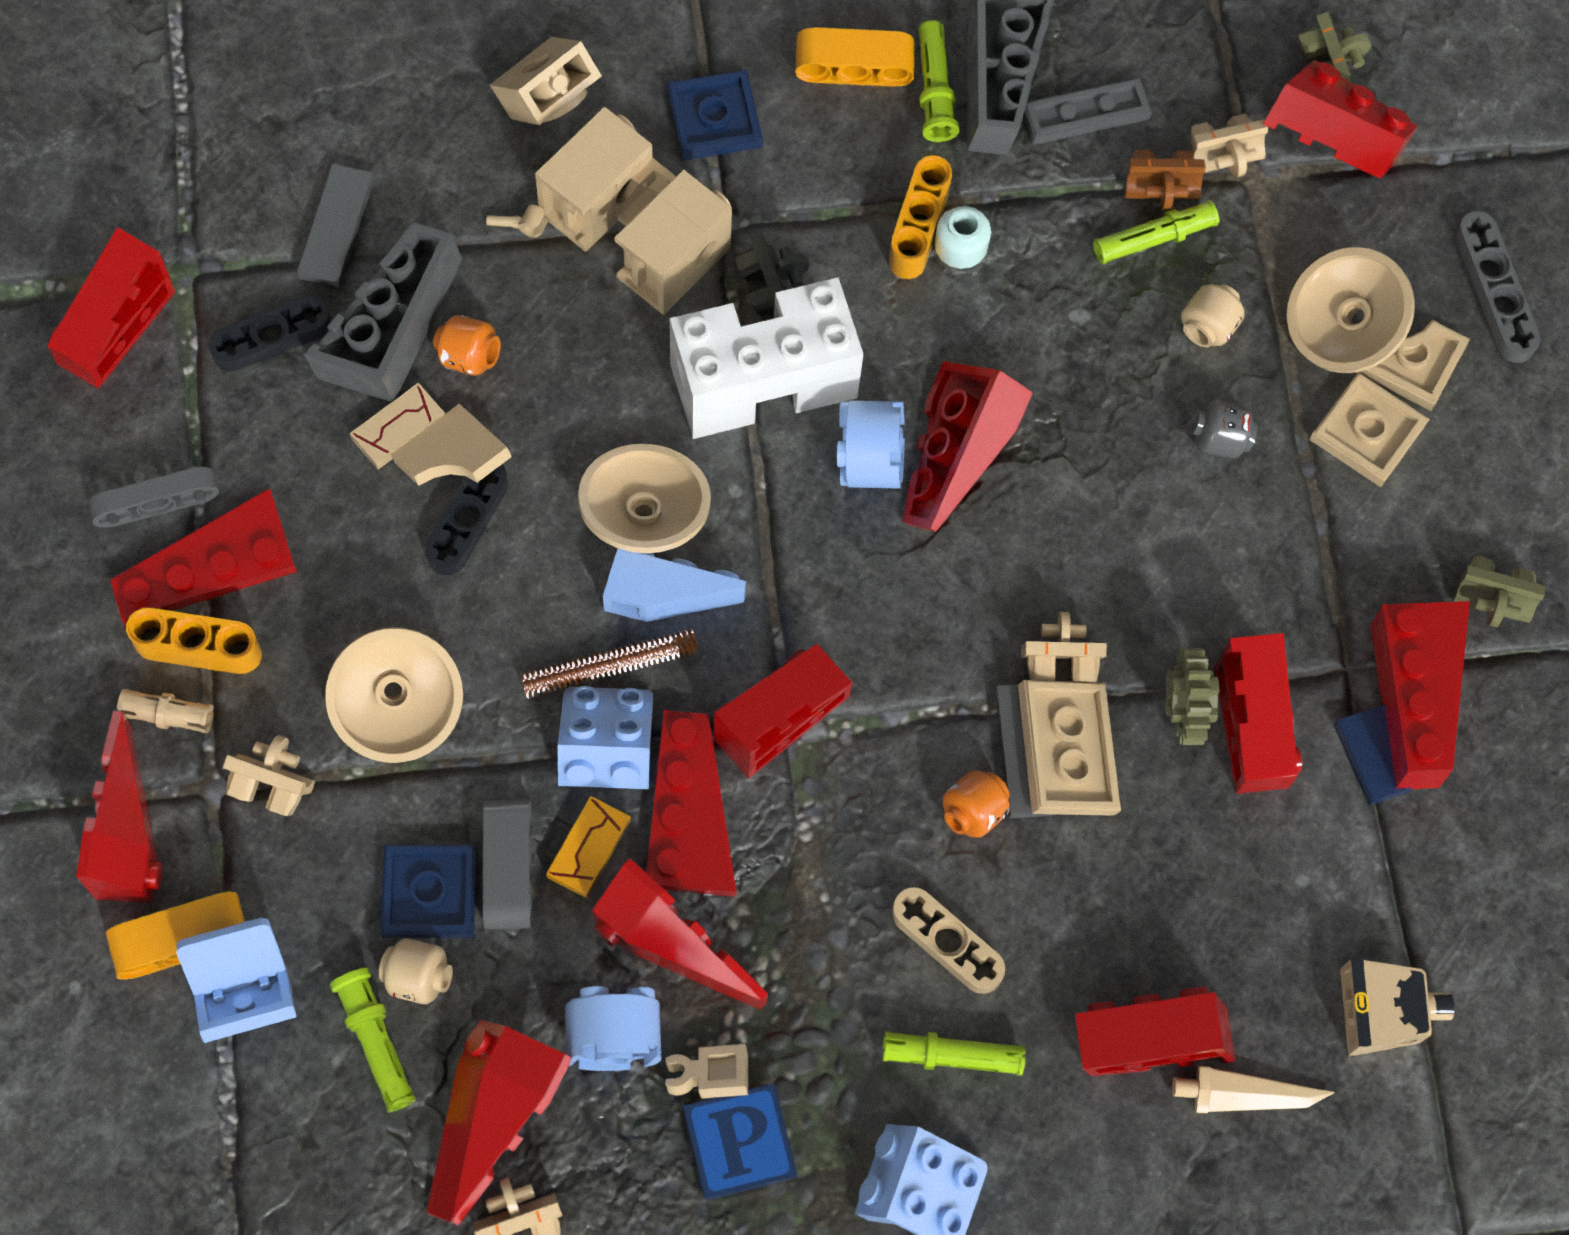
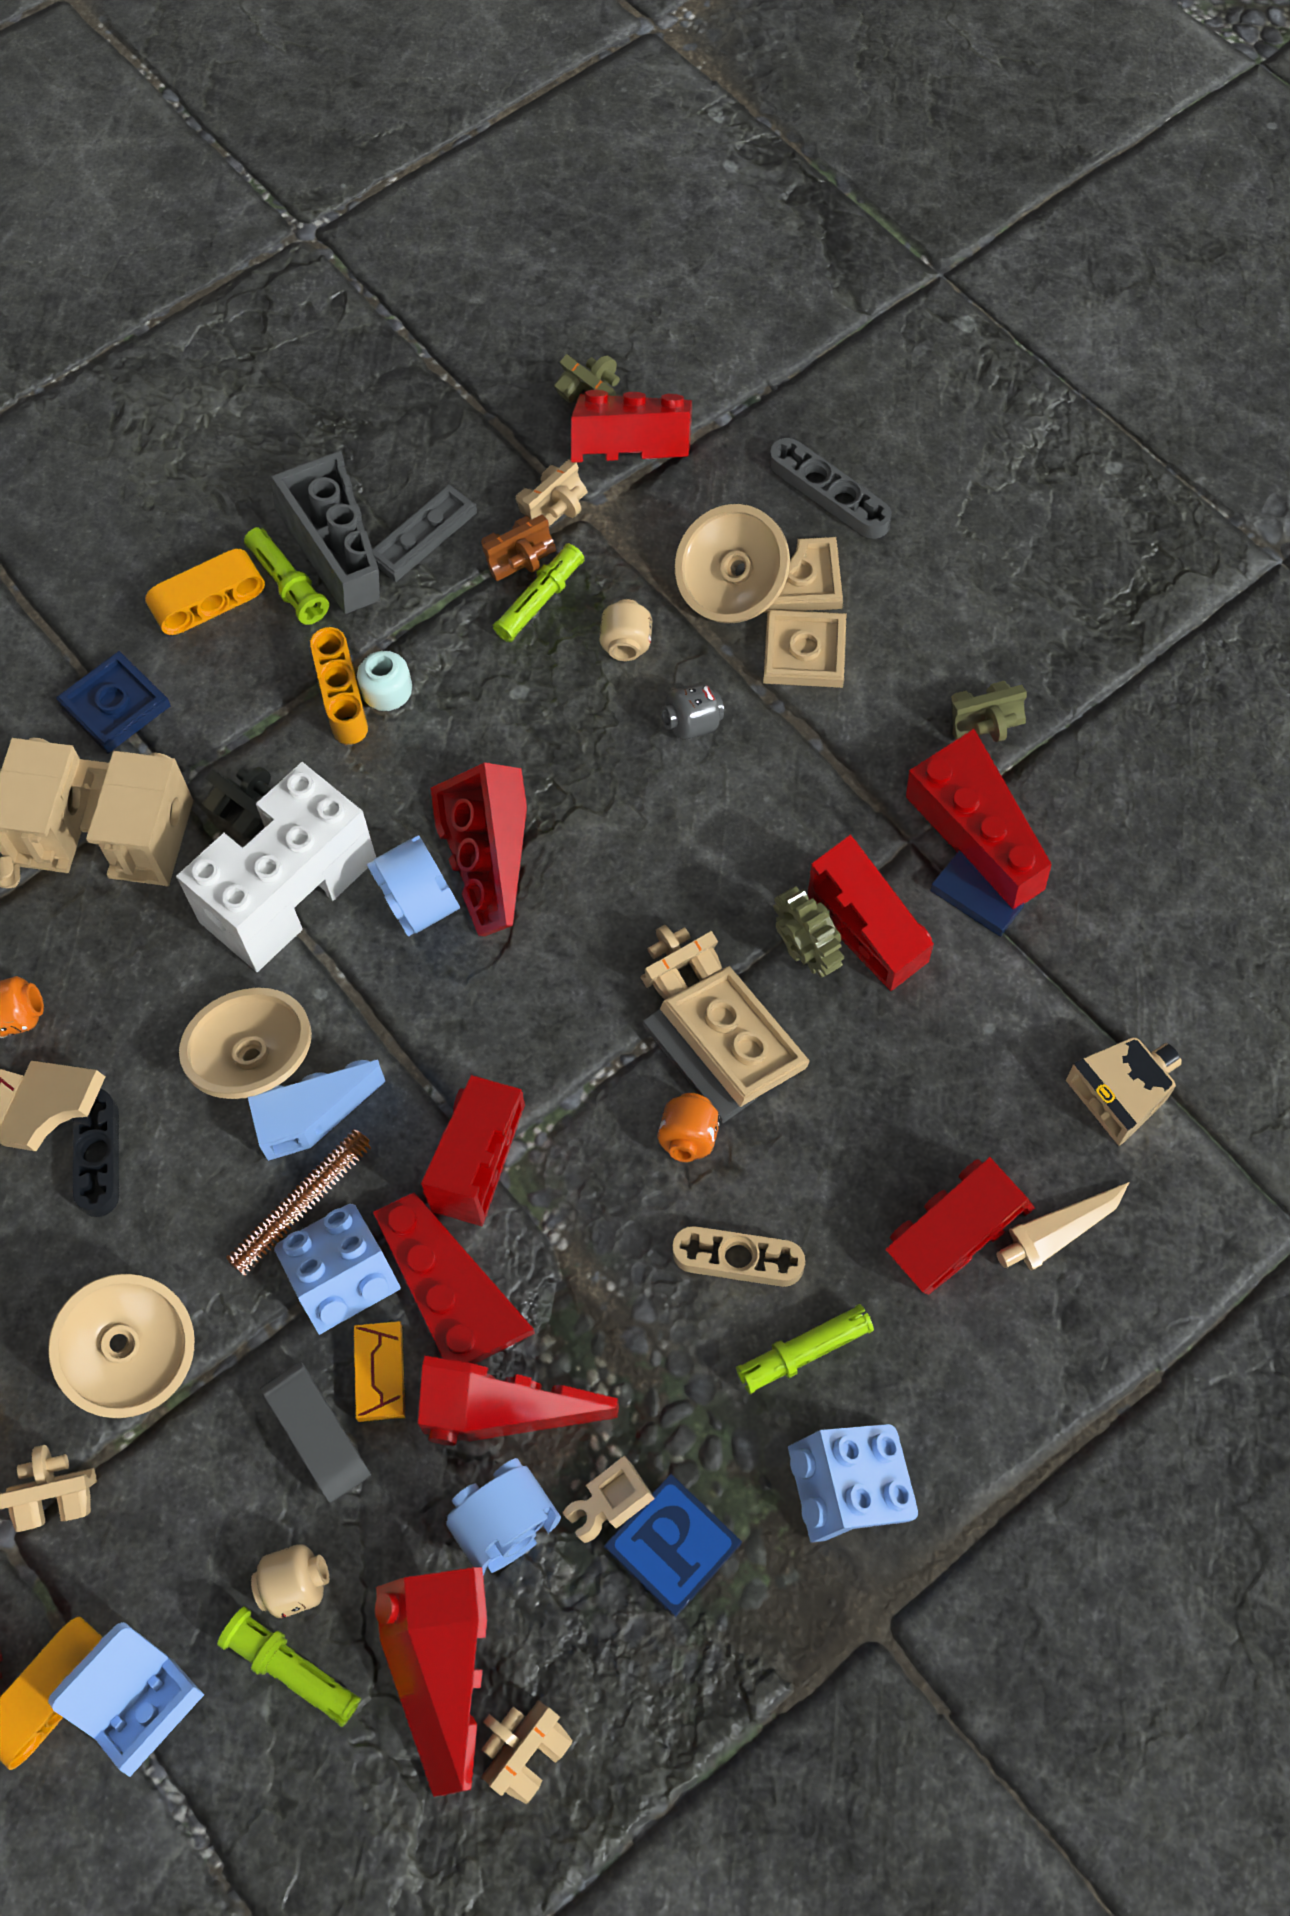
camera: 25 degrees left, 5 degrees down
(429, 891) = (258, 1501): dark blue tile -> none

